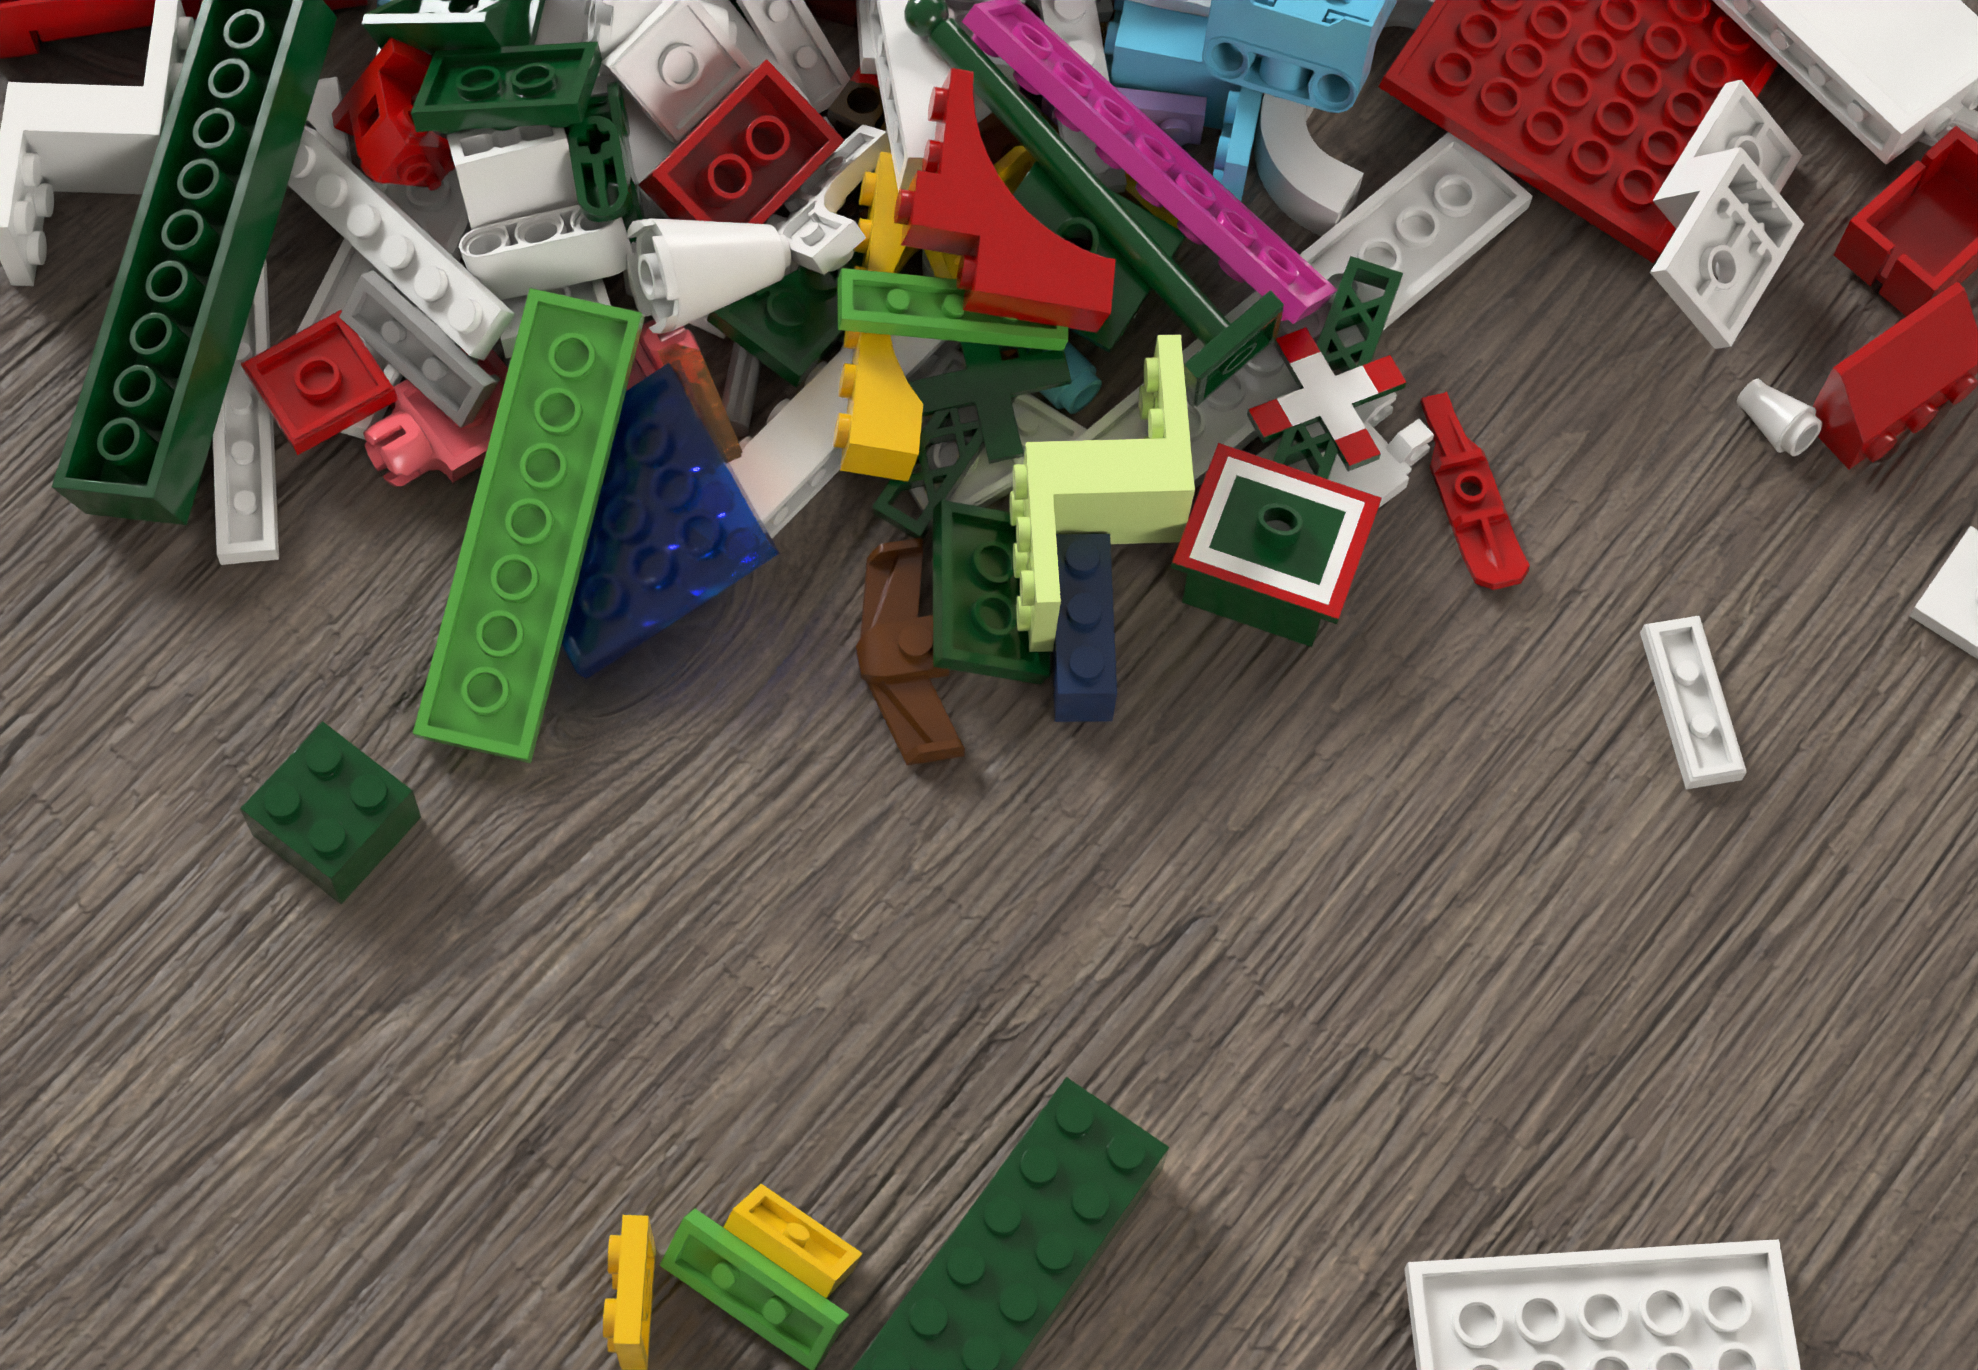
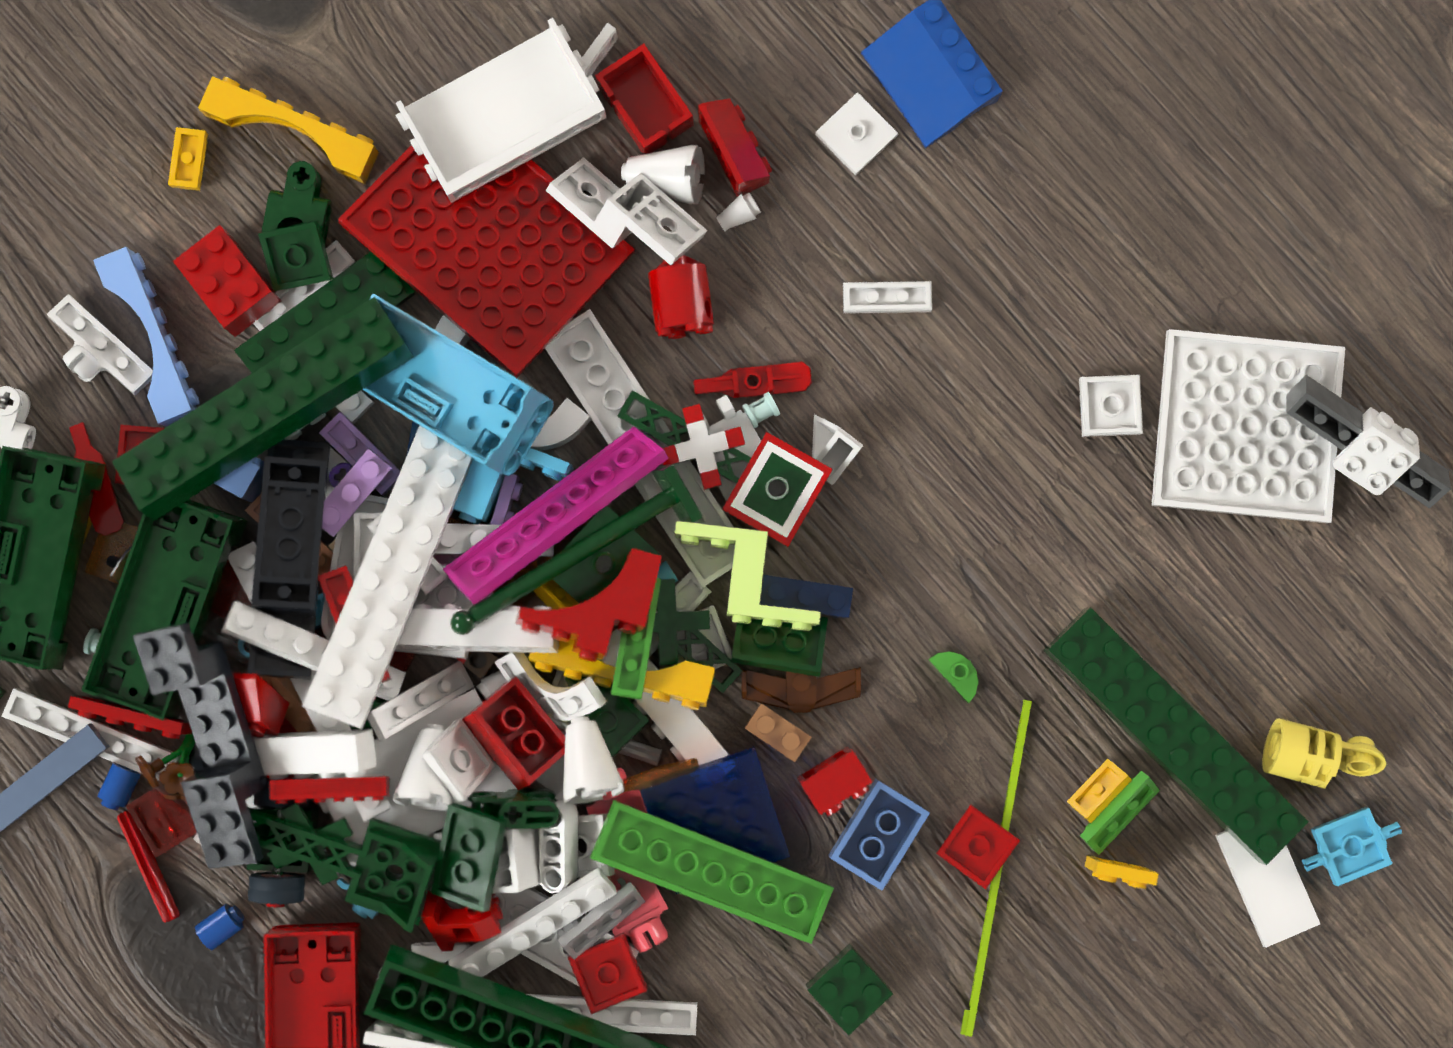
camera: 80 degrees left, 20 degrees up
(638, 1071) = (970, 1015): none -> lime piece
(643, 817) = (878, 834): none -> medium blue brick
(644, 1020) = (978, 846): none -> red tile
(737, 702) = (835, 781): none -> red brick
(813, 614) = (777, 732): none -> medium nougat brick
(986, 936) = (957, 672): none -> bright green plate
(1368, 647) = (833, 447): none -> white slope
(1419, 504) = (761, 409): none -> light aqua bush
(1590, 1151) = (1110, 405): none -> white plate
(1592, 329) = (681, 298): none -> red cylinder
(1821, 295) = (671, 170): none -> white cone

